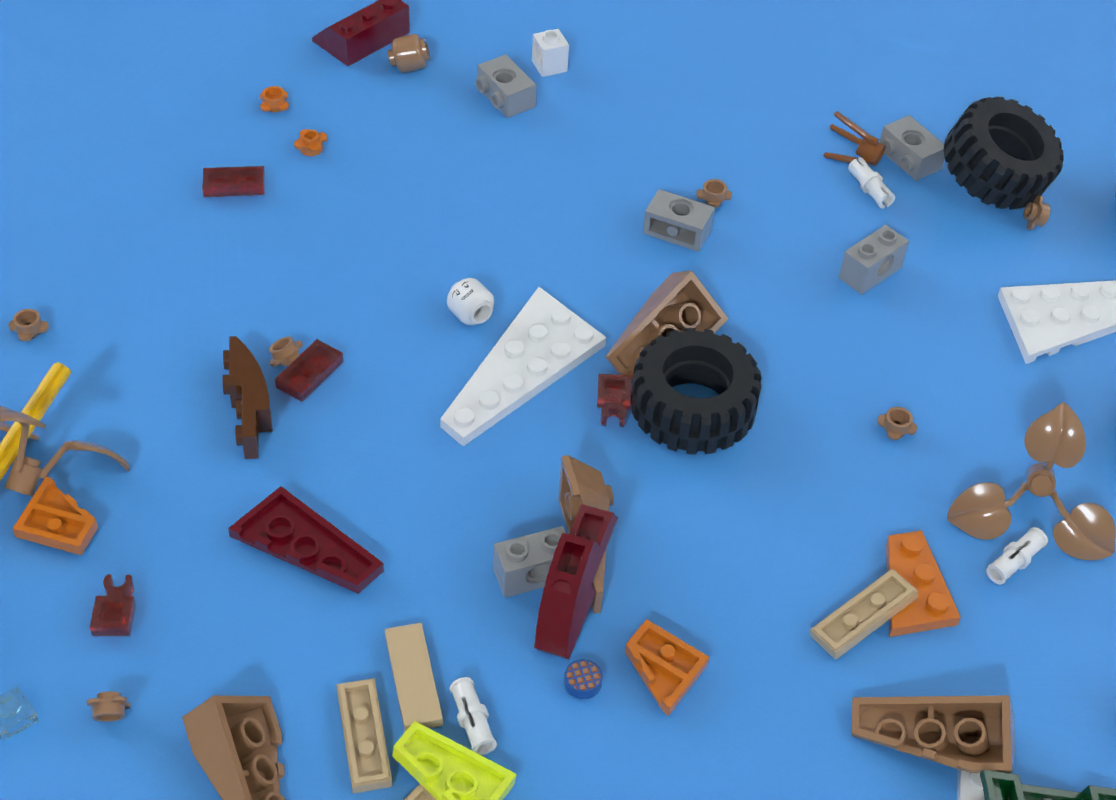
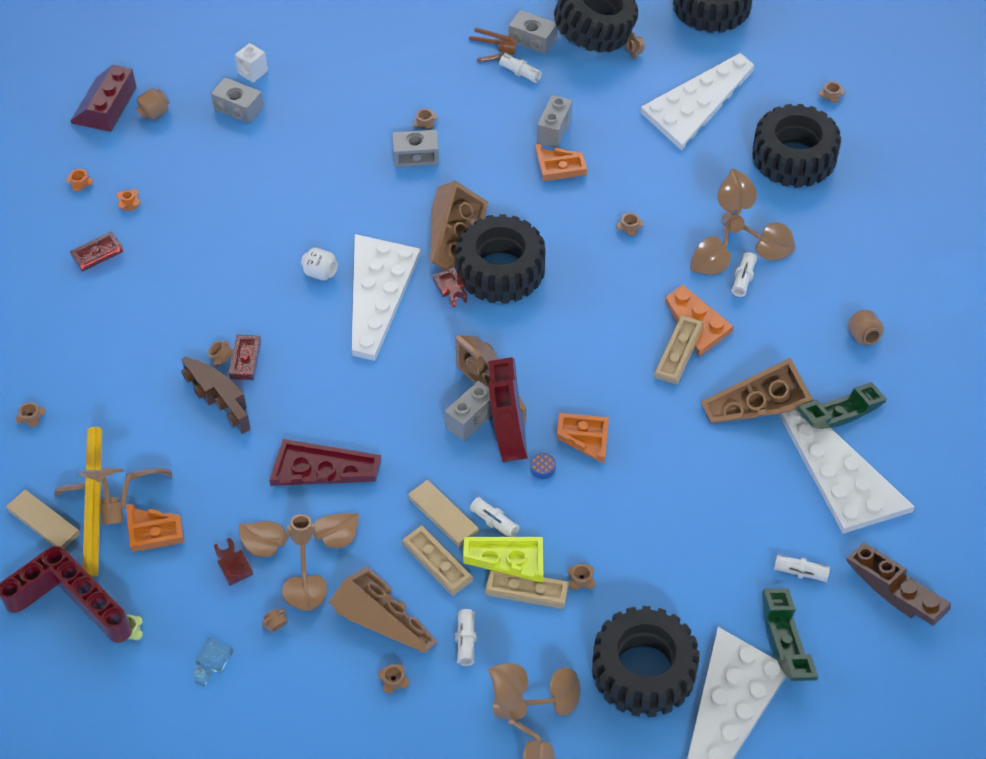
camera: 25 degrees left, 5 degrees up
(171, 595) = (265, 536): none -> medium nougat plant
(850, 312) = (560, 163): none -> orange wing

